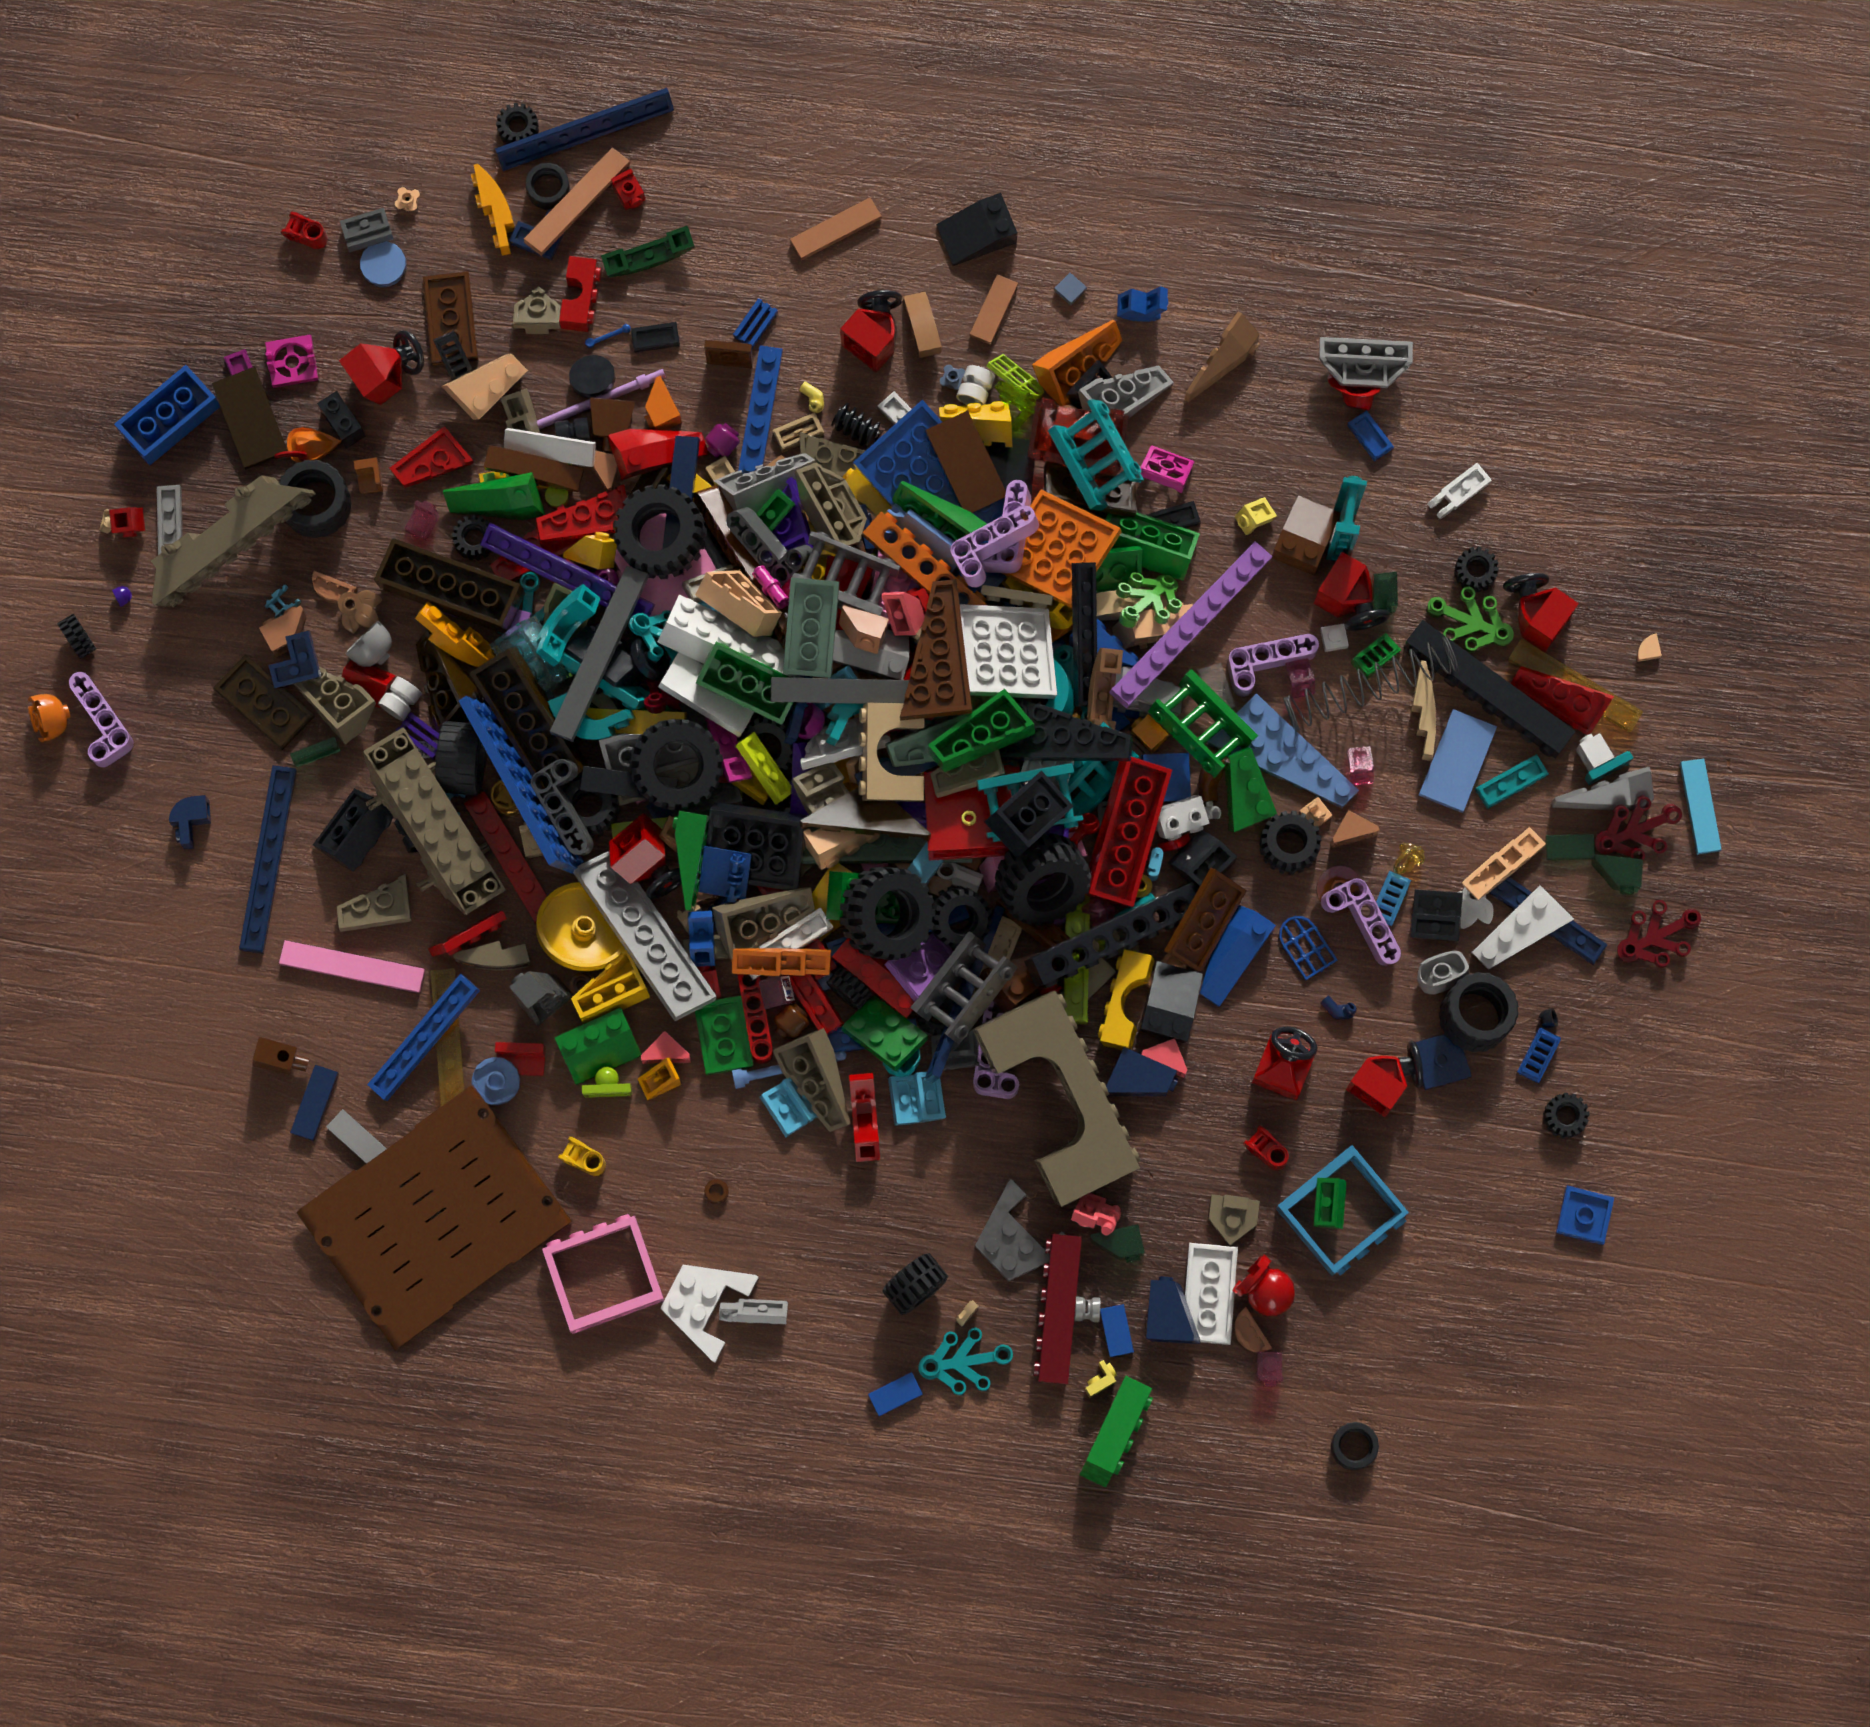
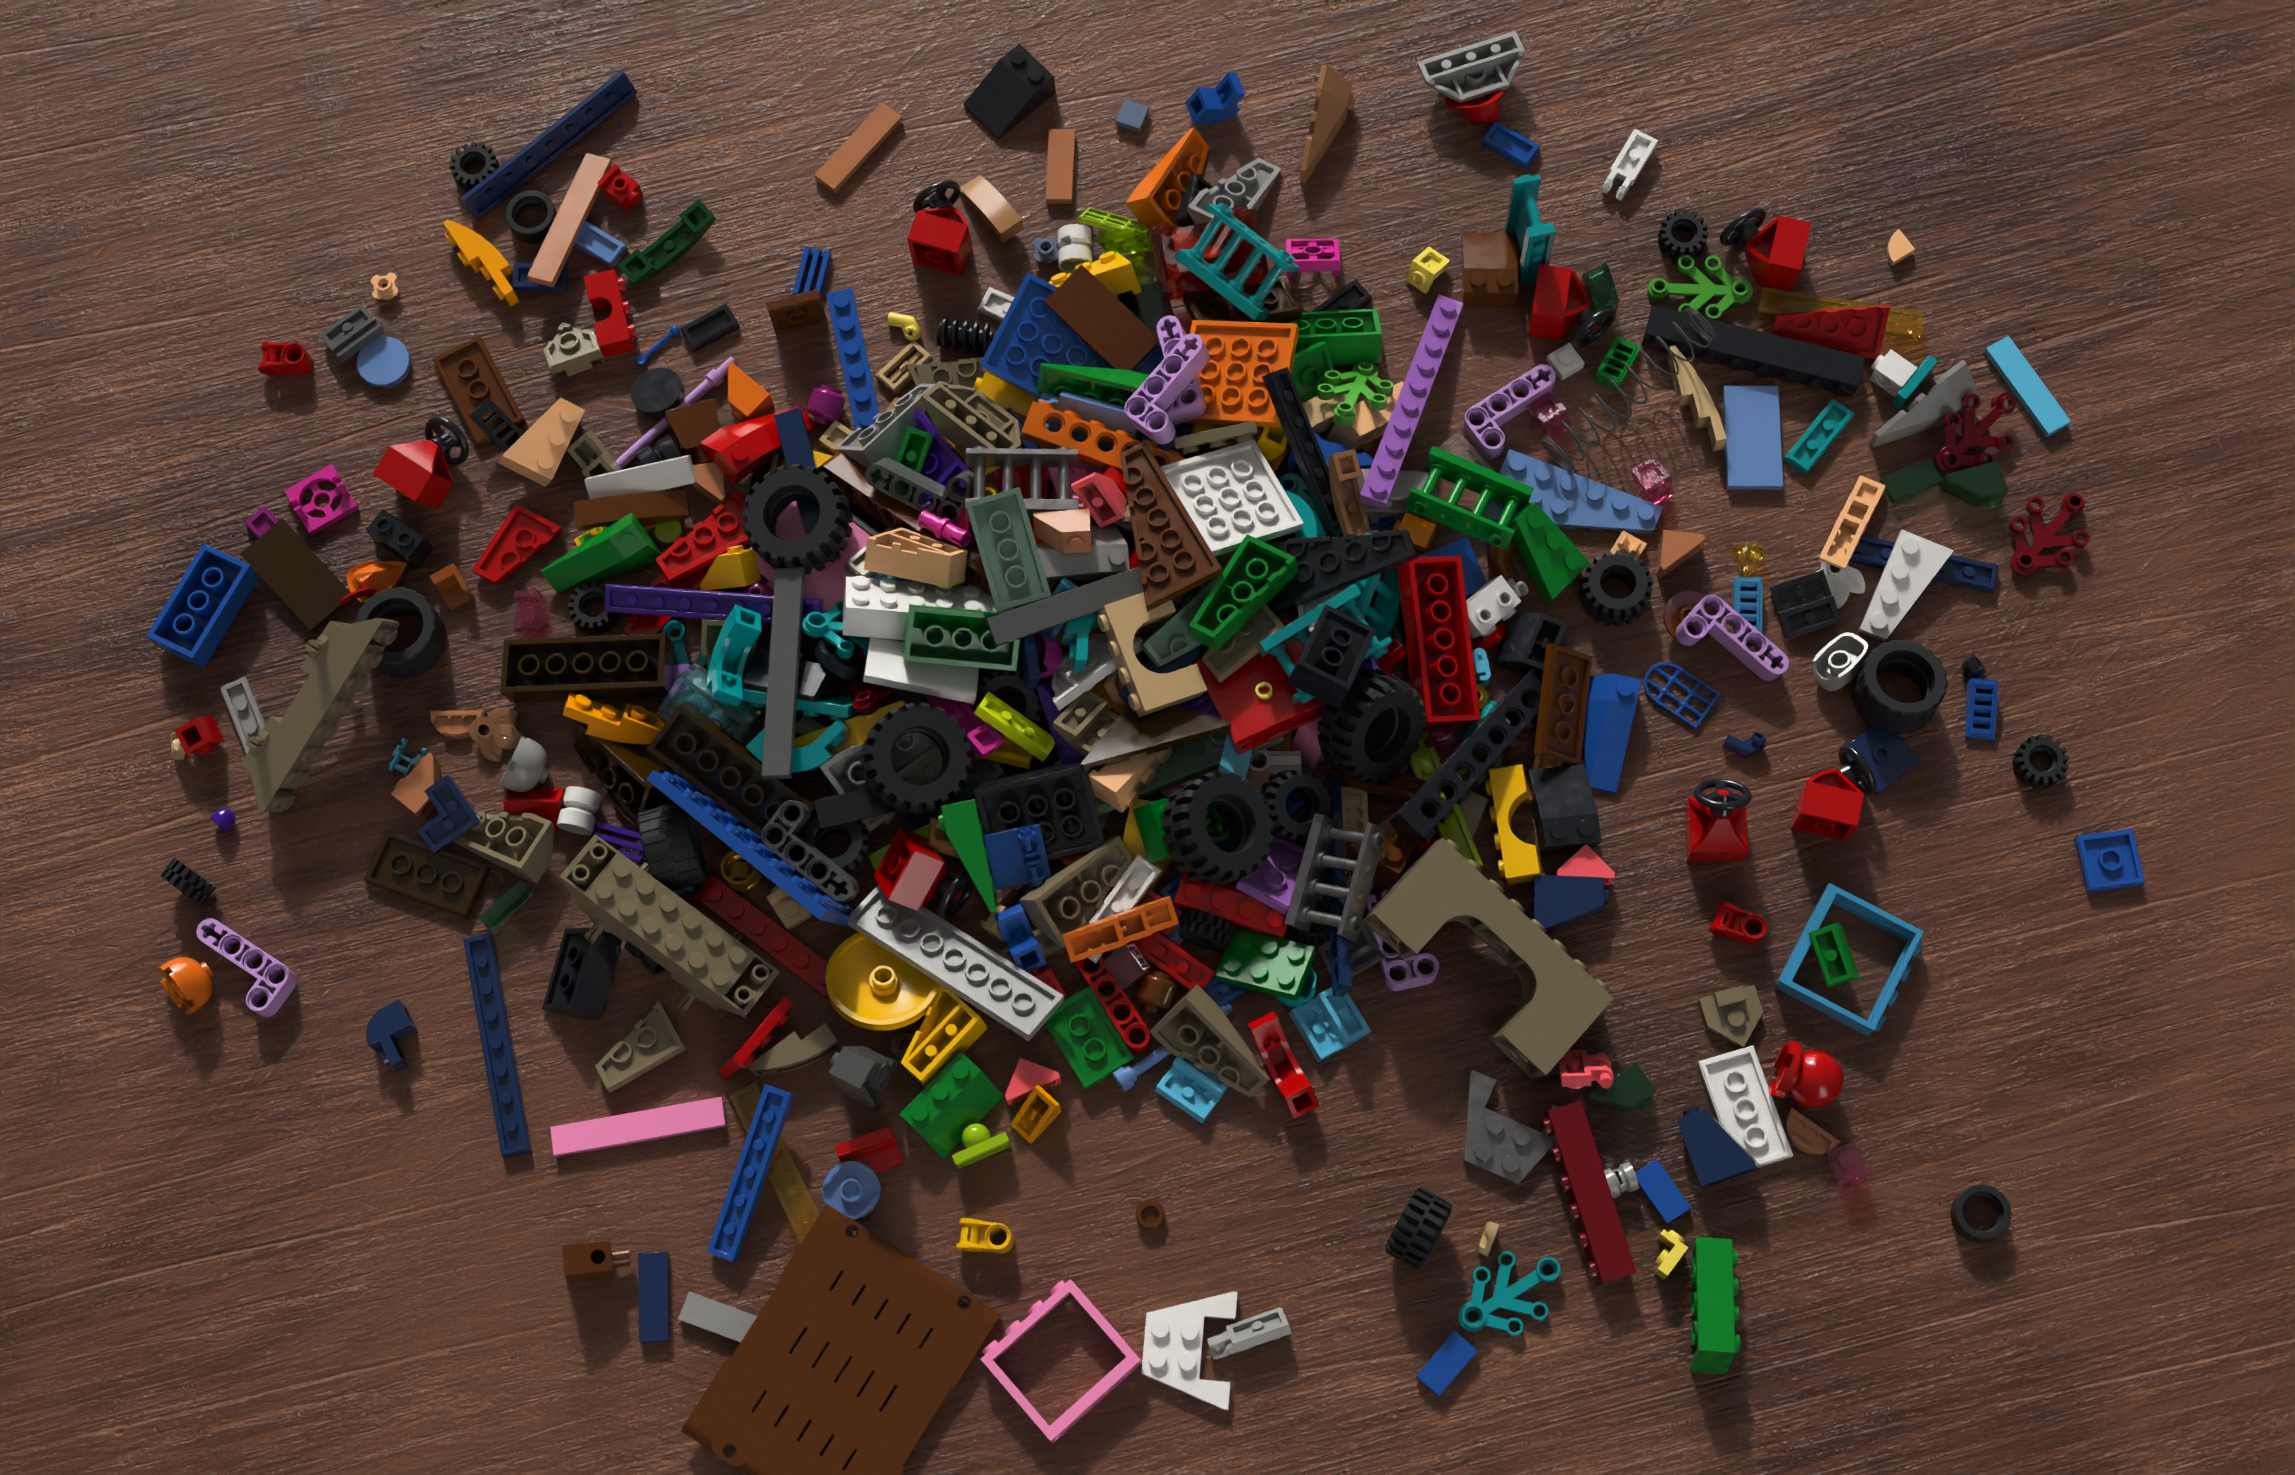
camera: 15 degrees left, 5 degrees down
(594, 231) = (600, 245): none -> medium blue tile

